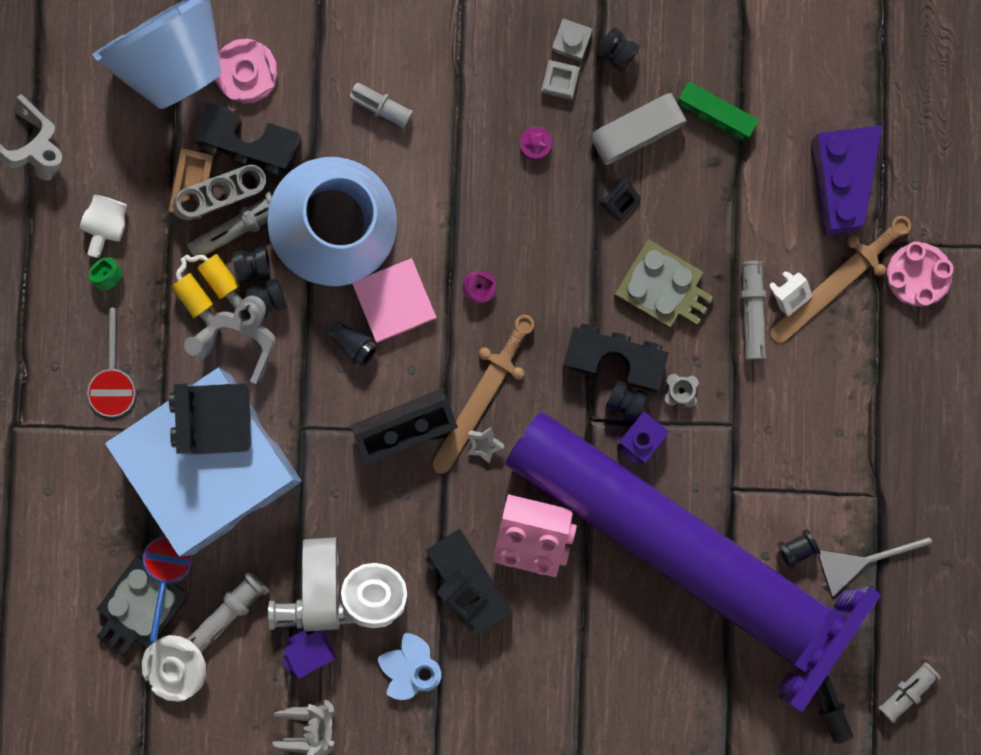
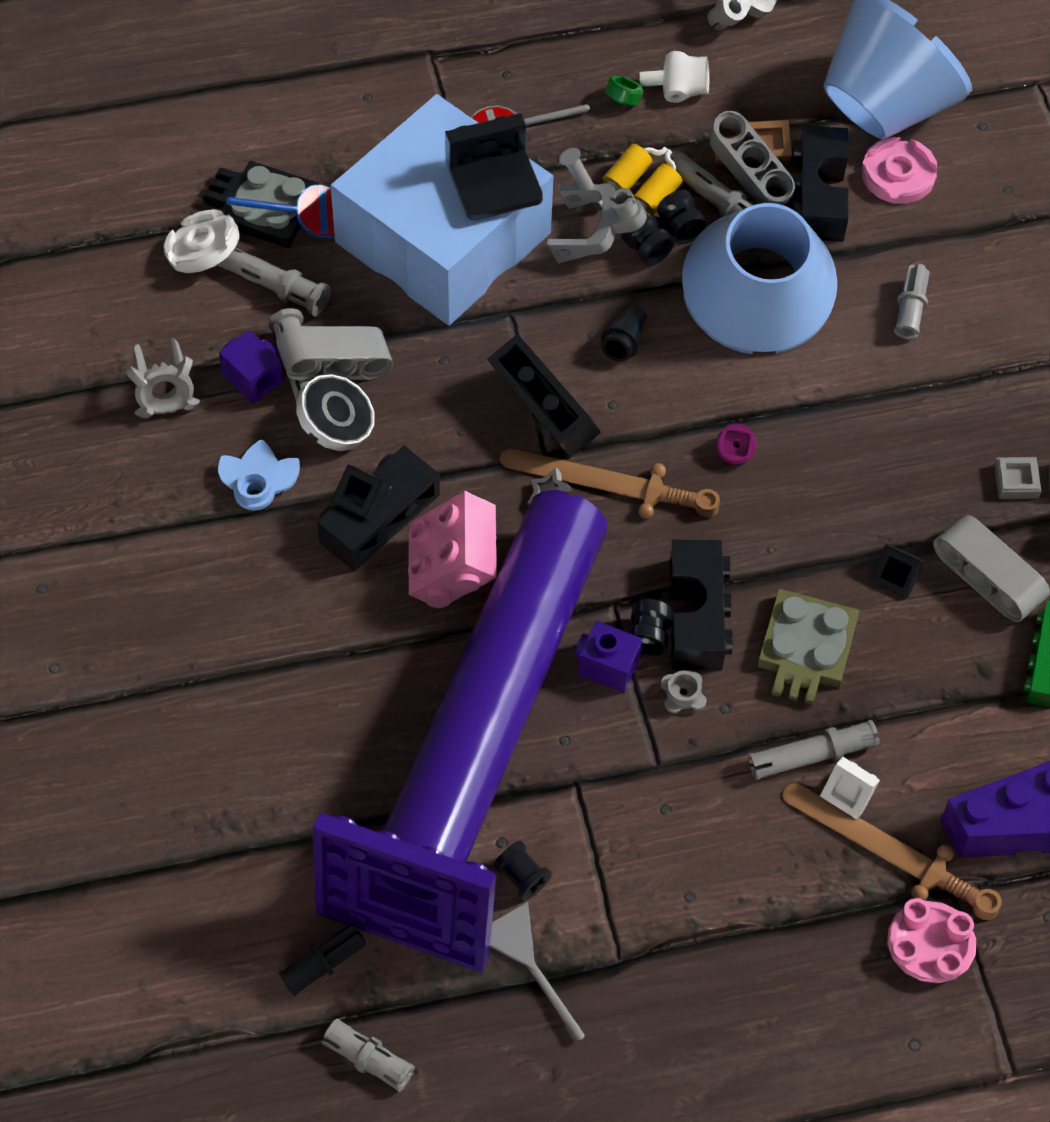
camera: 70 degrees right, 25 degrees down
(394, 300) = (689, 366): bright pink tile -> none
(536, 143) = (930, 468): magenta tile -> none

